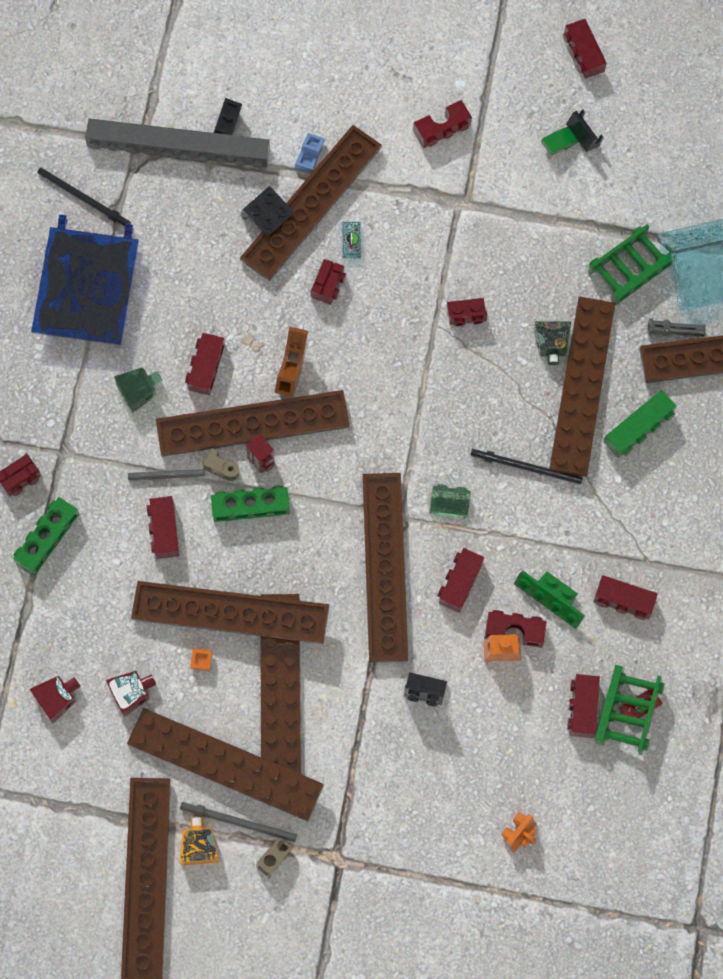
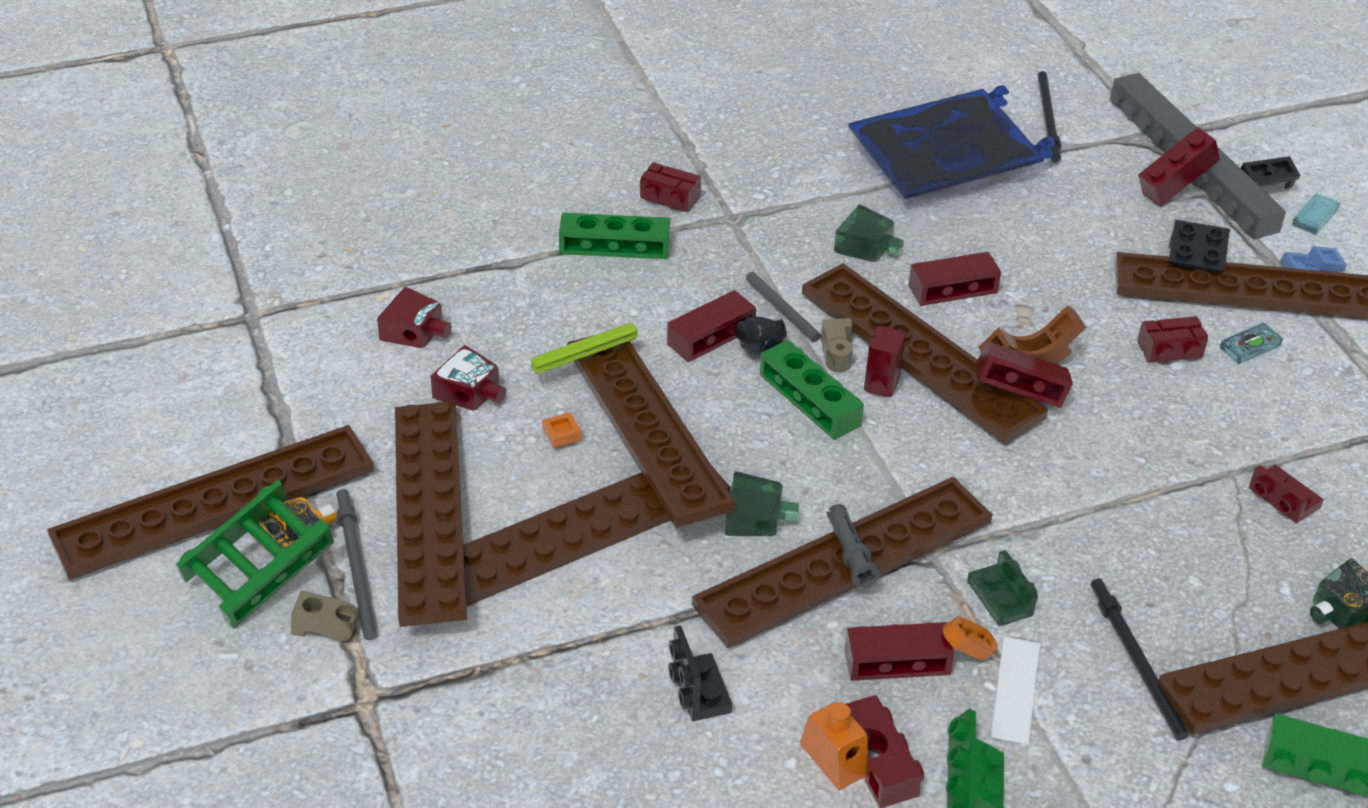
camera: 60 degrees right, 30 degrees down
(148, 613) = (583, 348): none -> lime axle
(195, 506) = (760, 334): none -> black hair
(196, 169) = (1179, 166): none -> dark red brick
(234, 880) = (263, 581): none -> green fence
(269, 116) = (1316, 214): none -> clear light blue tile
(315, 386) = (1023, 374): none -> dark red brick
(323, 587) = (757, 507): none -> clear green torso
(394, 562) = (855, 553): none -> dark grey pin
(477, 542) = (970, 638): none -> orange beam
(510, 537) = (1015, 691): none -> white sticker

